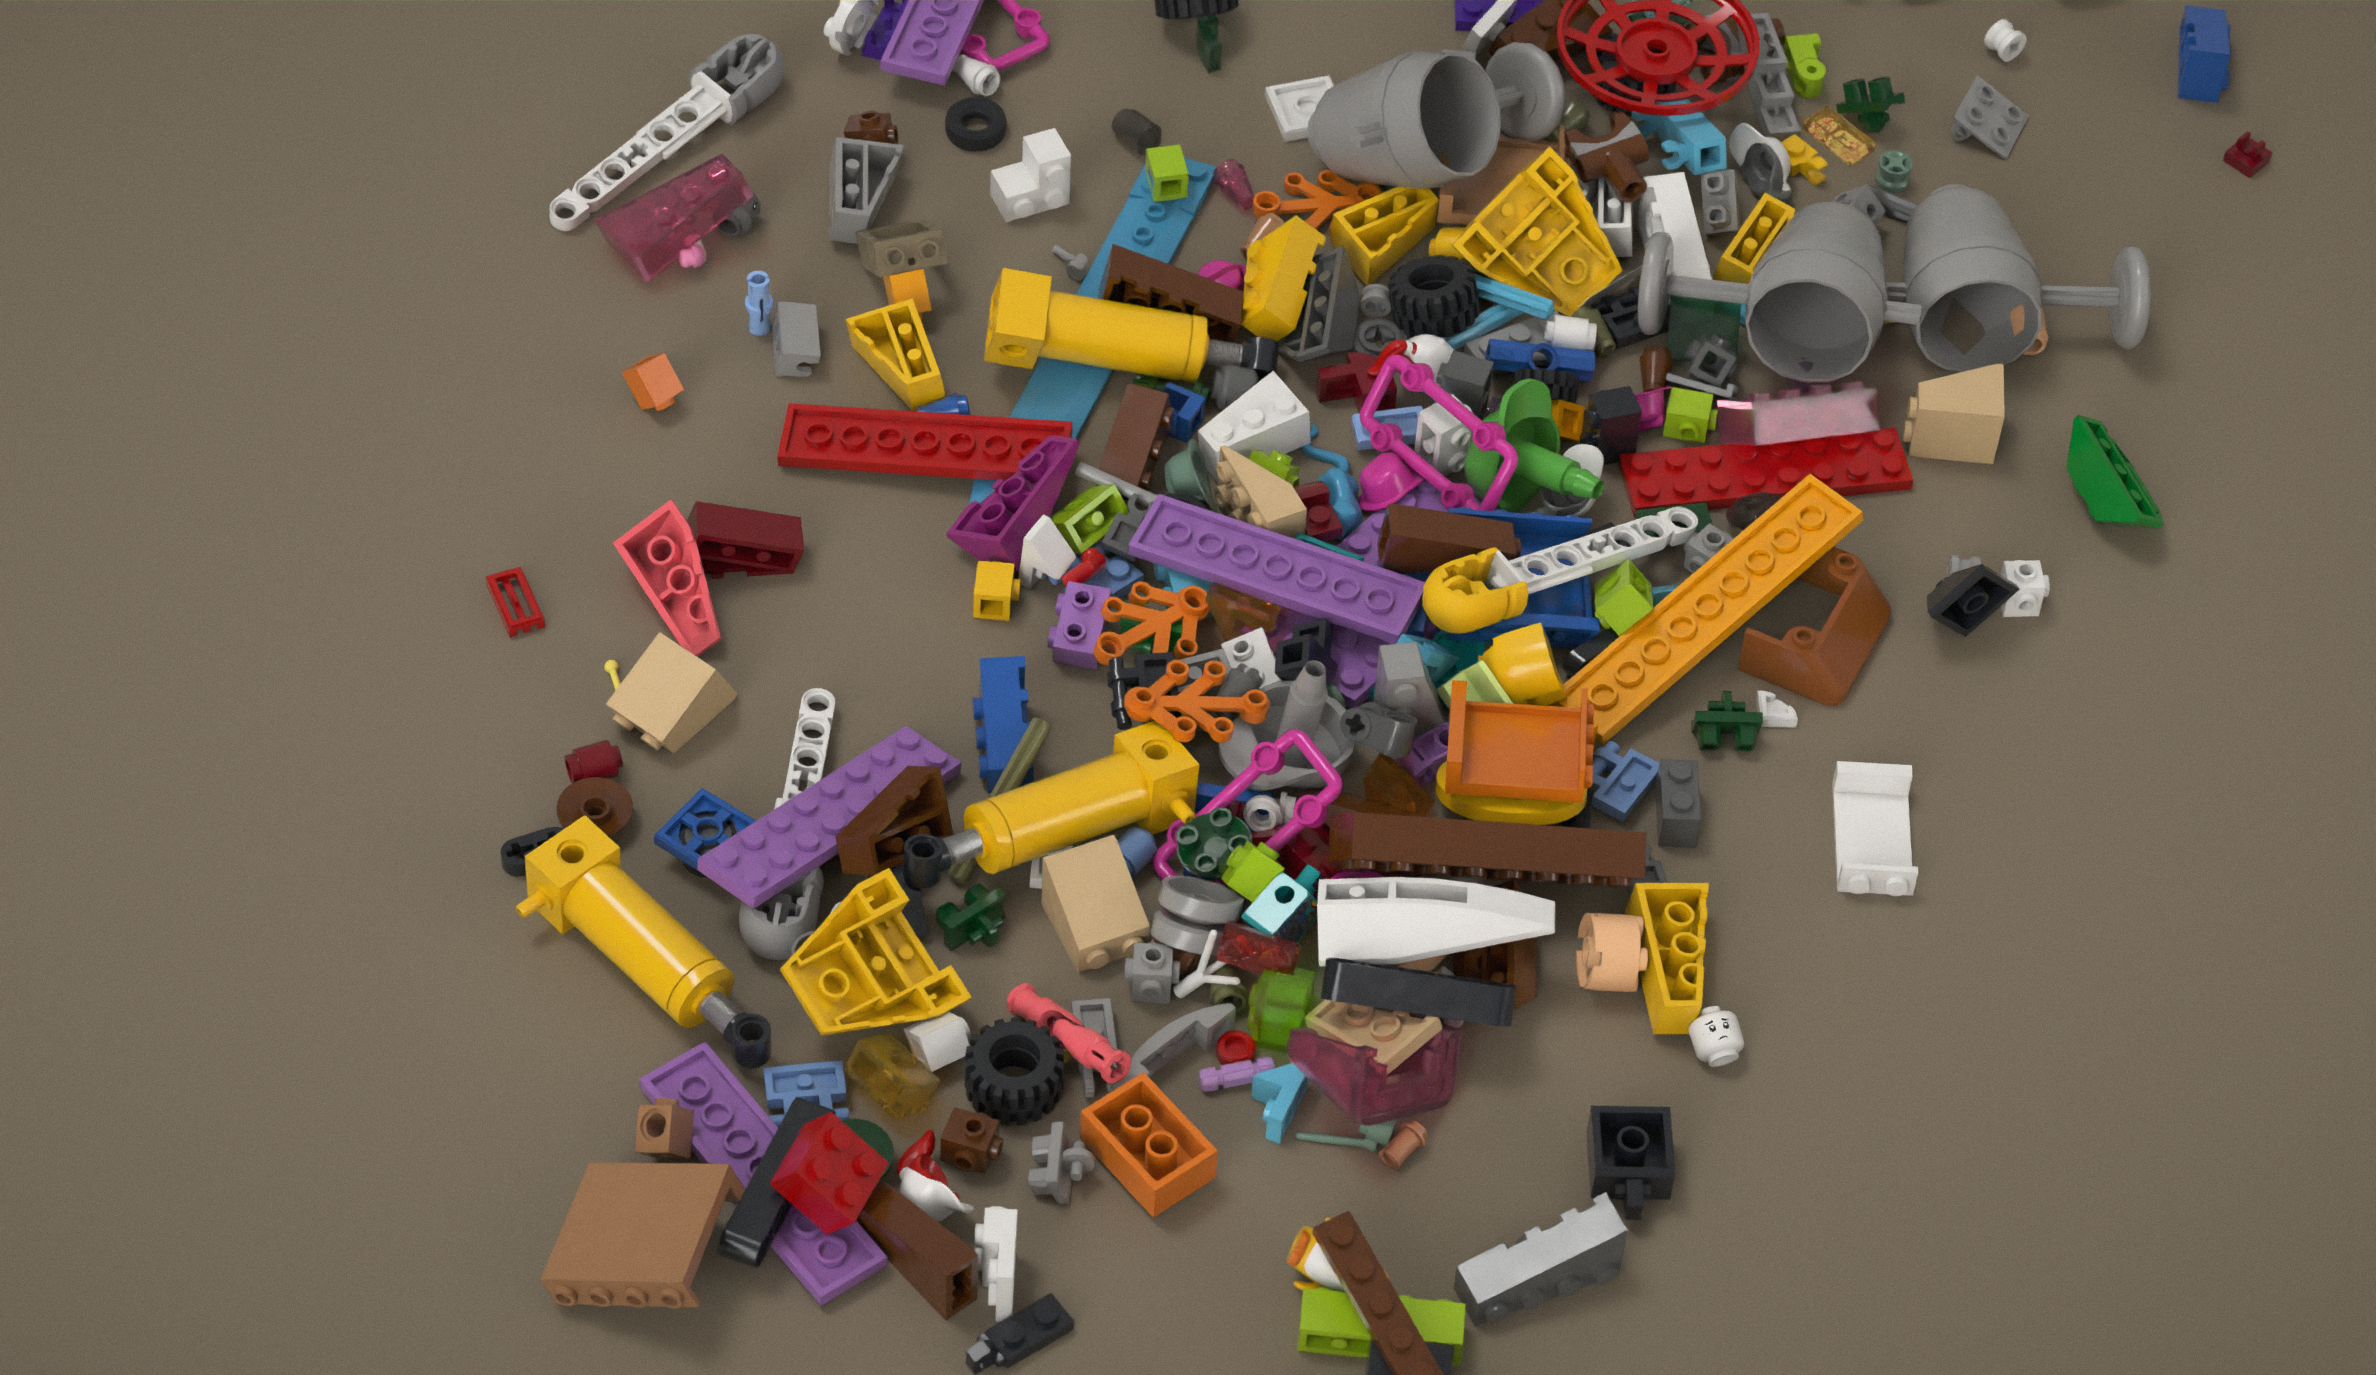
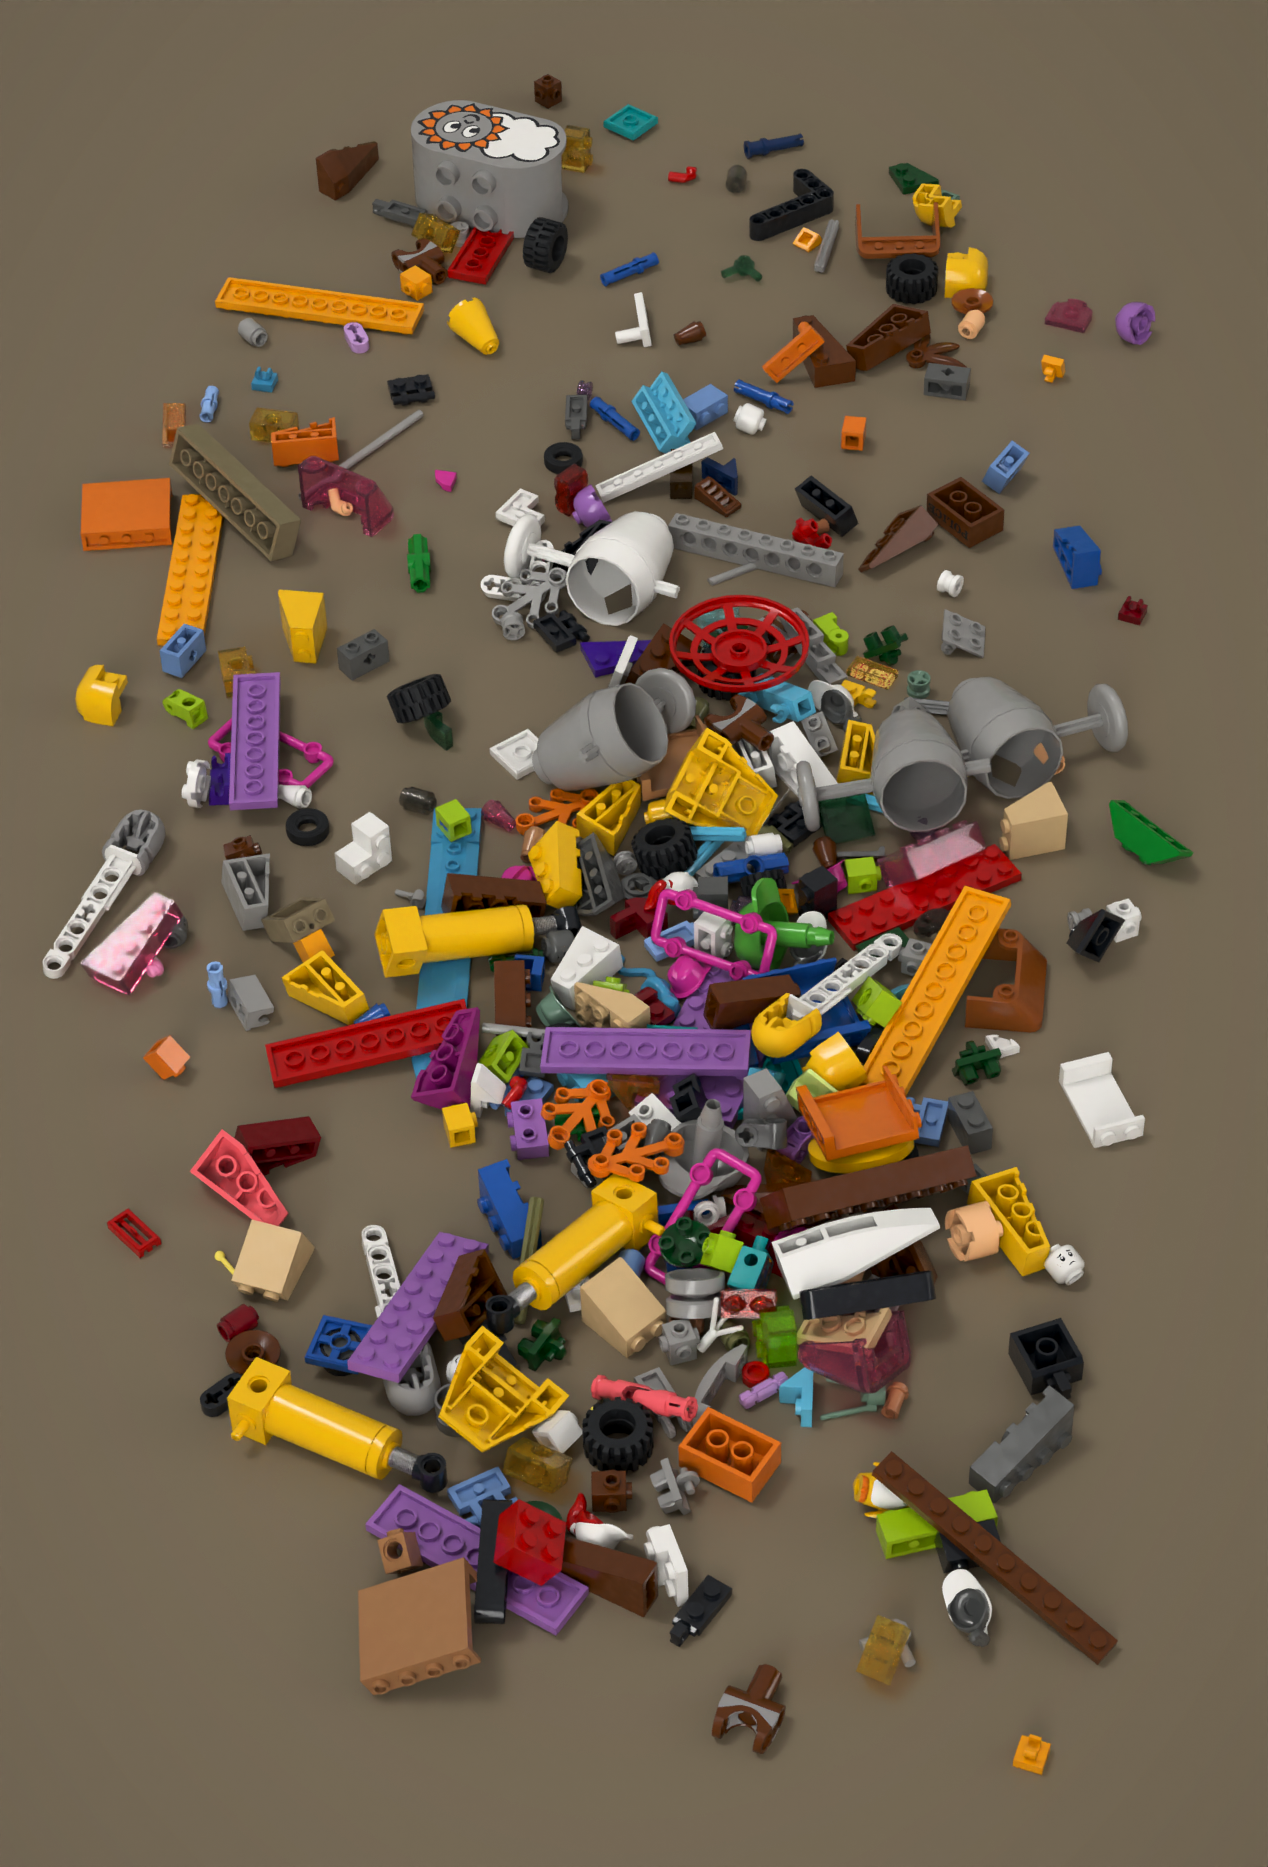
camera: 15 degrees left, 5 degrees down
(1717, 370) = (868, 838): dark grey brick -> none

